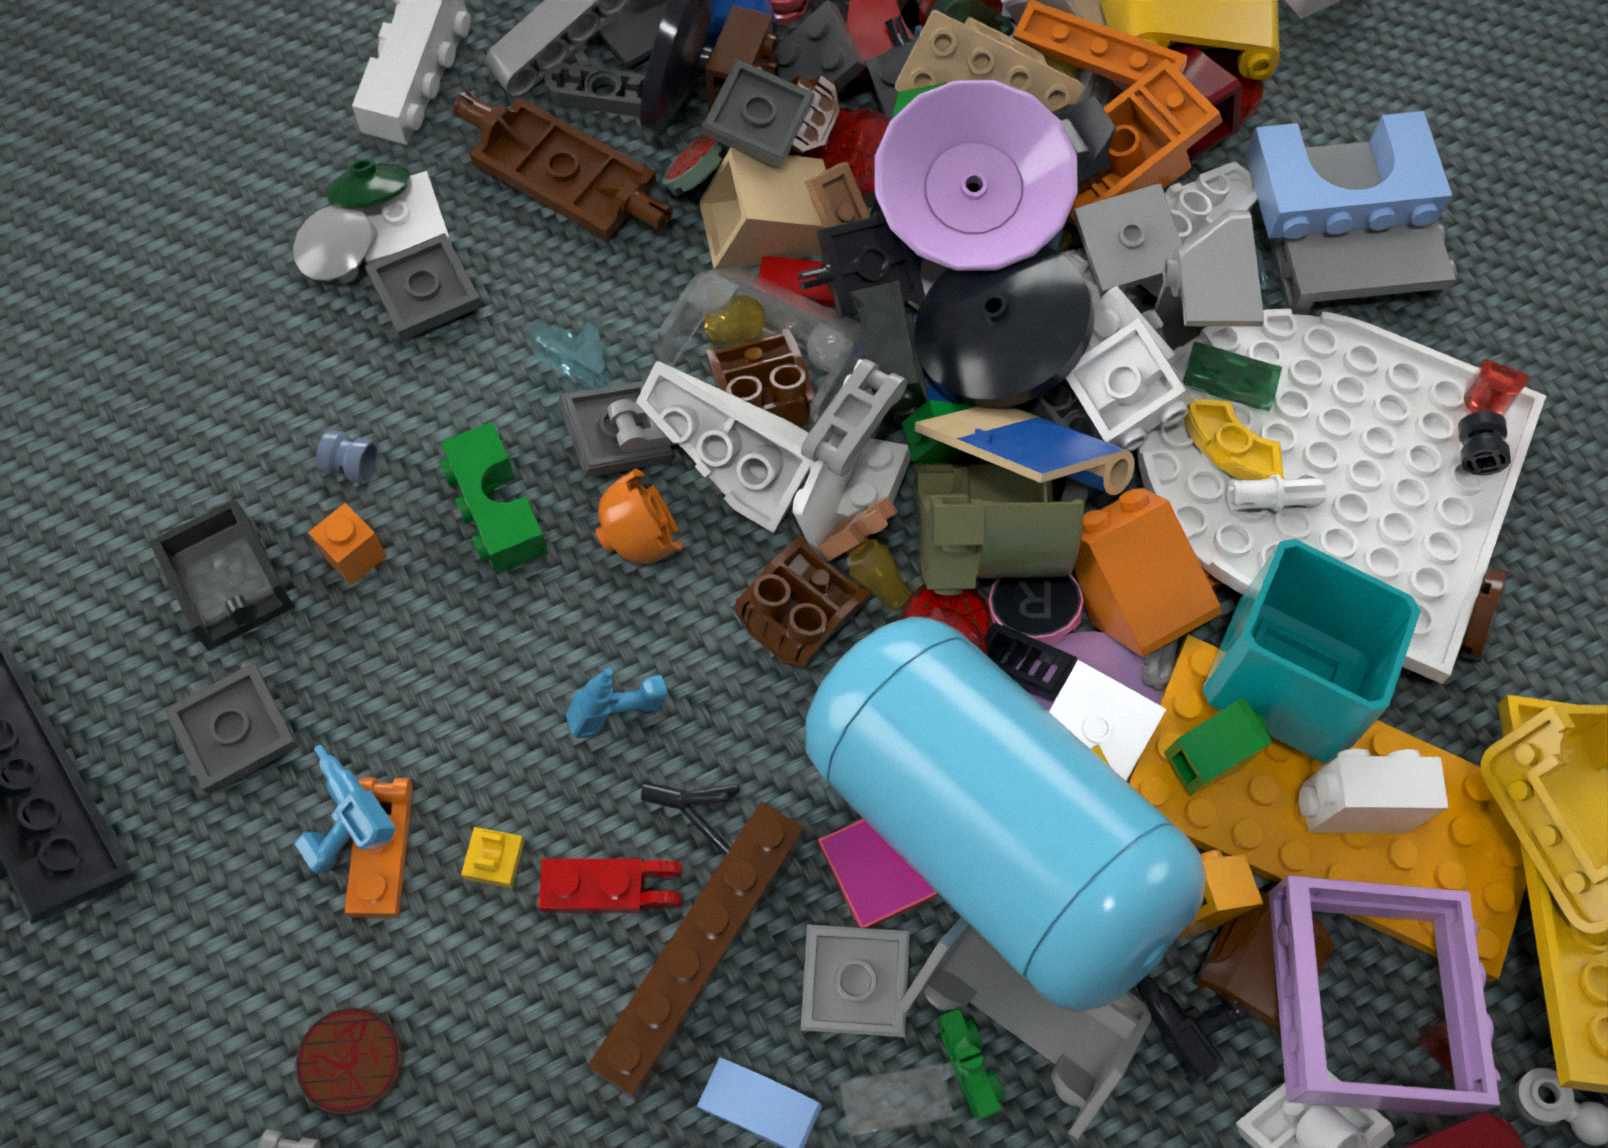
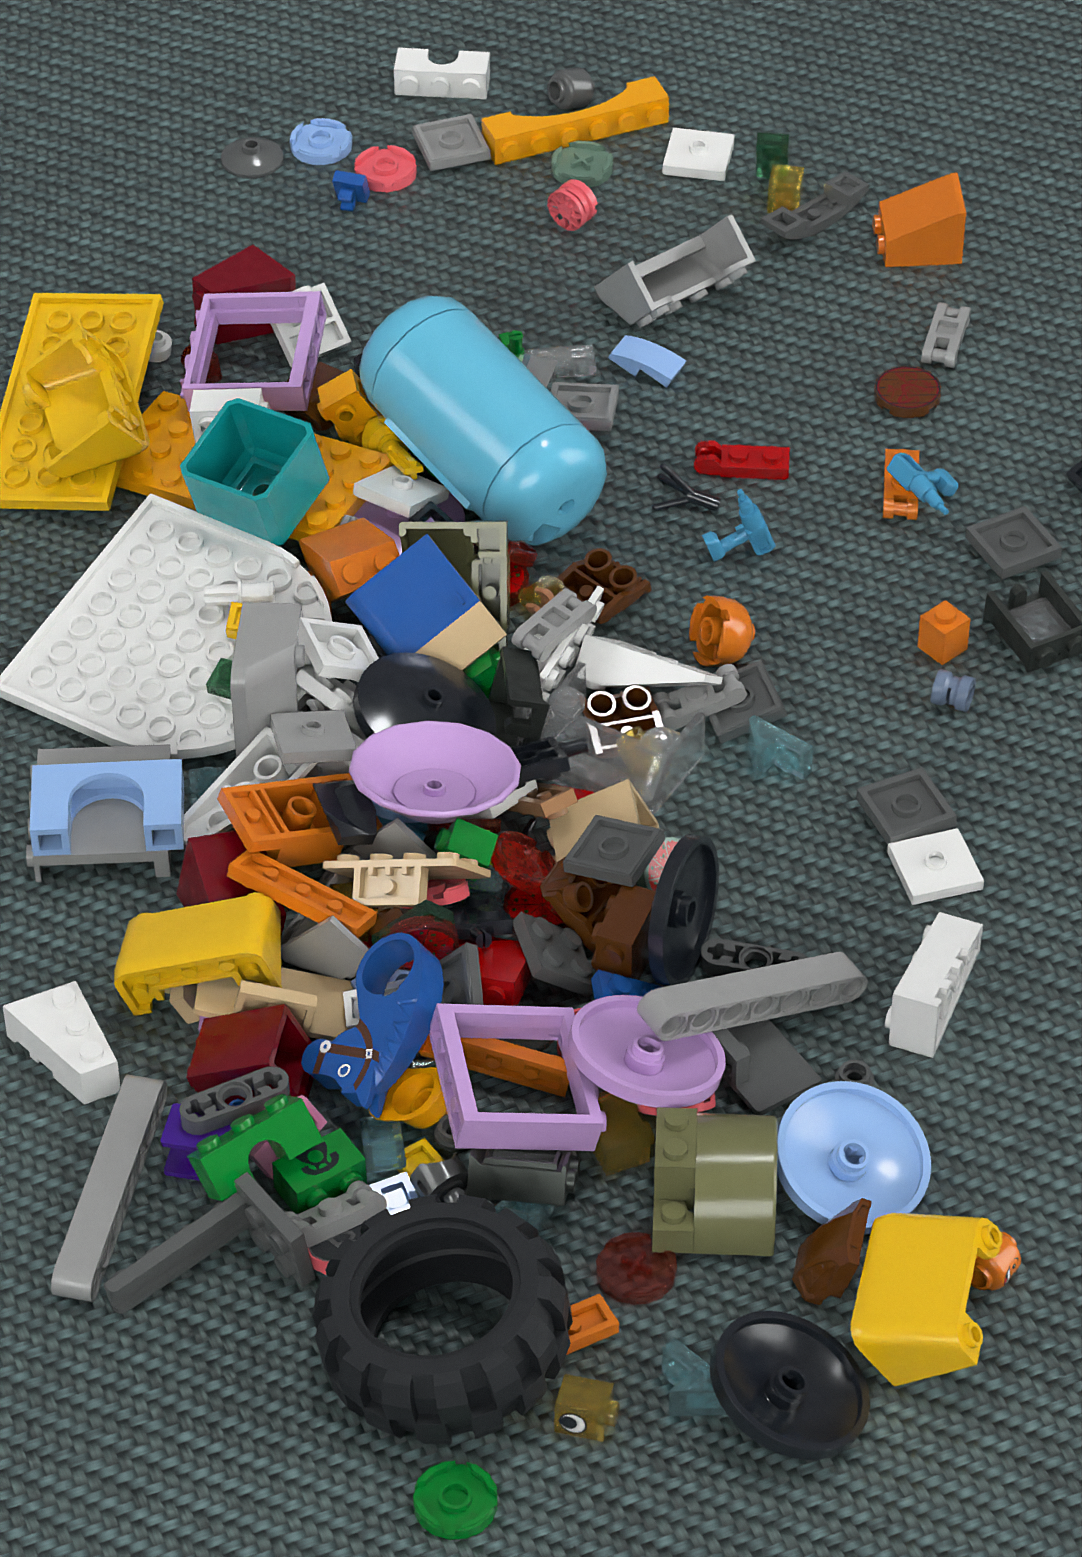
camera: 175 degrees left, 20 degrees down
(333, 244) = (987, 839): light grey dish -> none
(367, 184) = (954, 895): dark green dish -> none
(493, 857) = (822, 475): yellow tile -> none
(506, 530) = (847, 675): green arch -> none
(561, 166) = (793, 893): reddish brown plate -> none
(677, 979) = (717, 382): reddish brown arch -> none
(1219, 746) = (335, 447): green slope -> none
(1484, 443) = (67, 626): black wheel -> none
(1484, 614) = (99, 540): reddish brown tile -> none
(1494, 388) = (40, 665): clear red brick -> none

